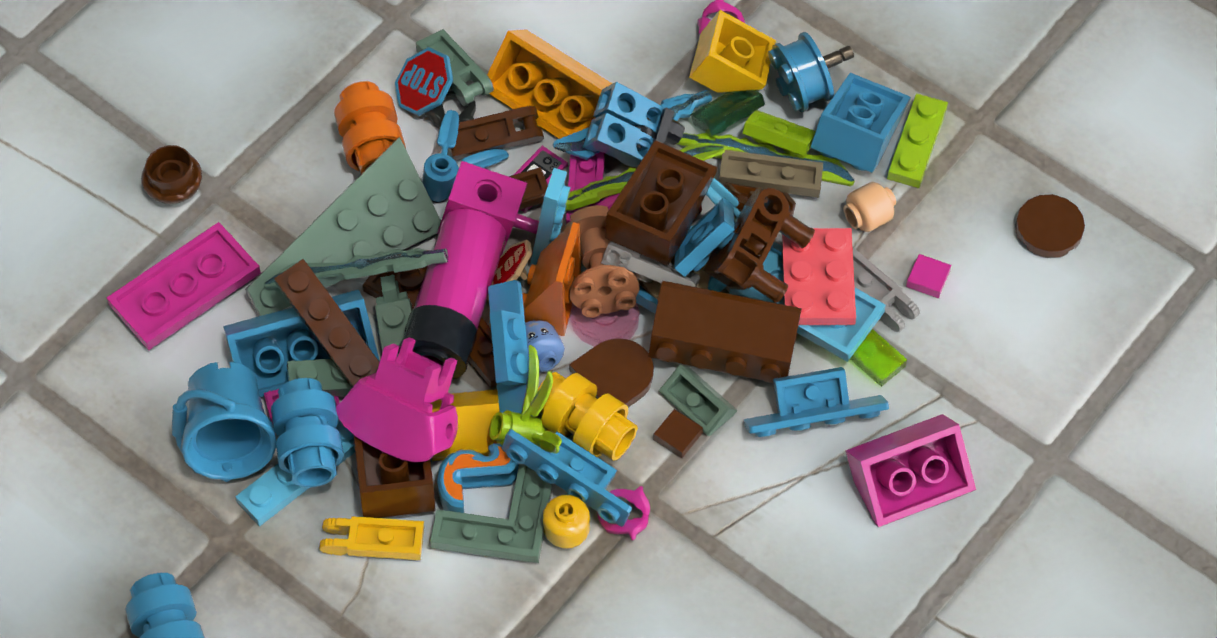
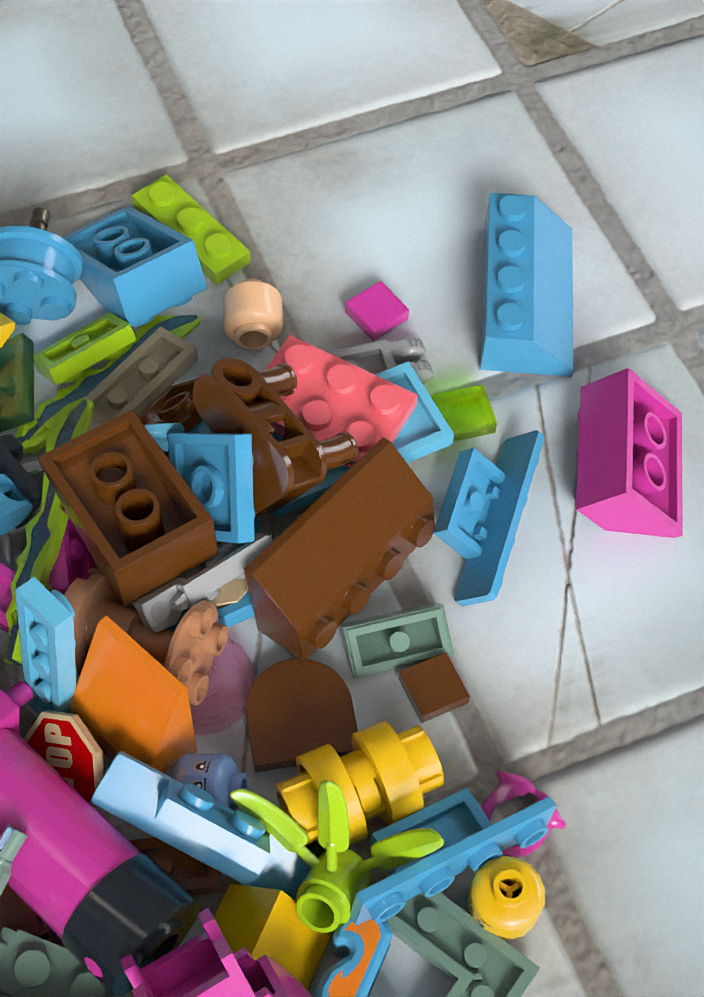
camera: 65 degrees left, 0 degrees up
(1008, 350) = (526, 288): none -> dark azure slope
(1050, 225) = (386, 172): reddish brown tile -> none

